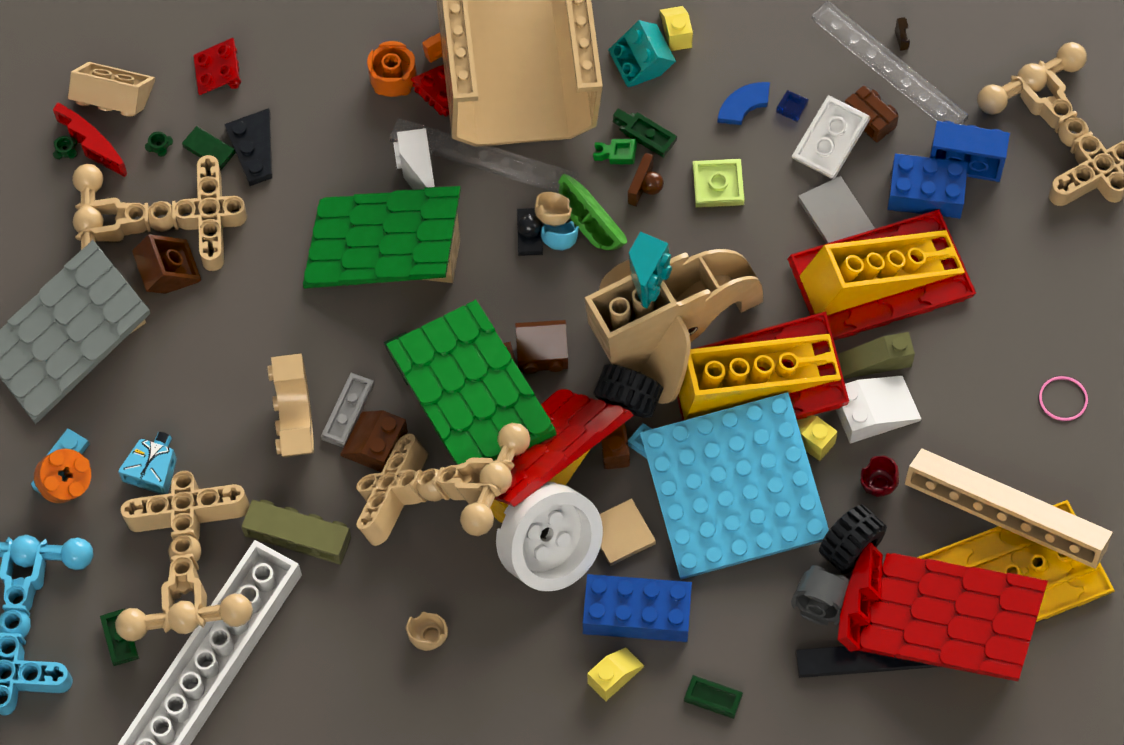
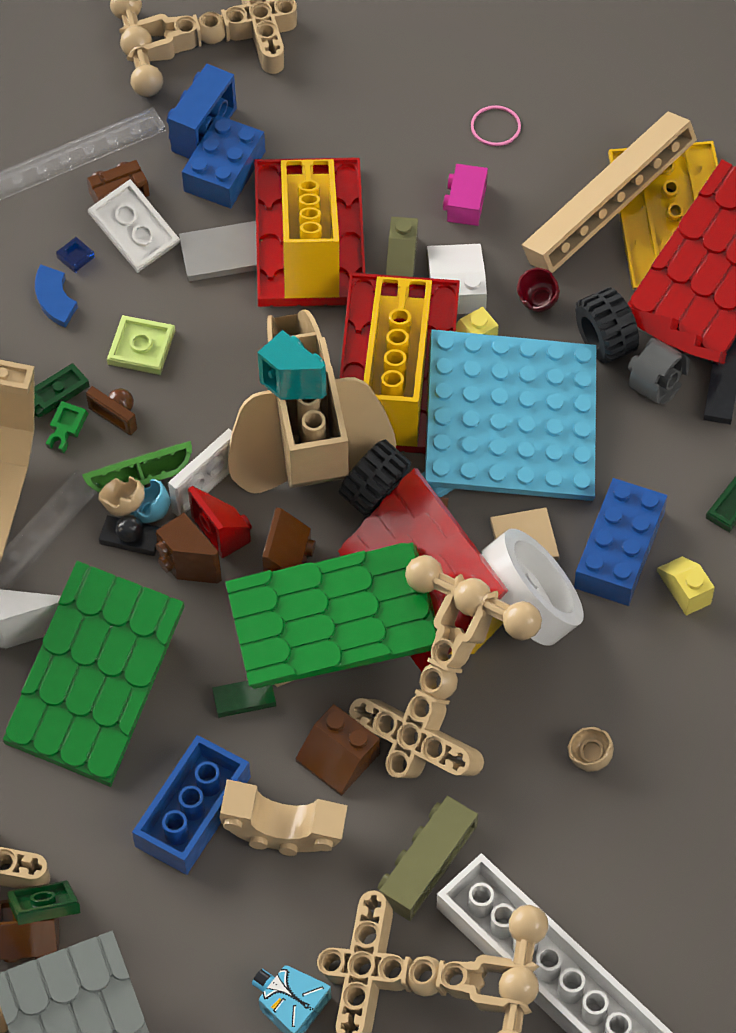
camera: 75 degrees left, 5 degrees down
(182, 267) = (43, 902): none -> dark green tile
(281, 334) = (189, 805): none -> blue brick
(347, 410) = (287, 772): light grey tile -> none
(519, 271) = (187, 552): none -> reddish brown slope
(552, 289) = (219, 522): none -> red slope
(587, 258) = (203, 473): none -> white tile
(900, 31) = (33, 136): dark brown tile -> none
(967, 391) = (466, 194): none -> dark pink brick

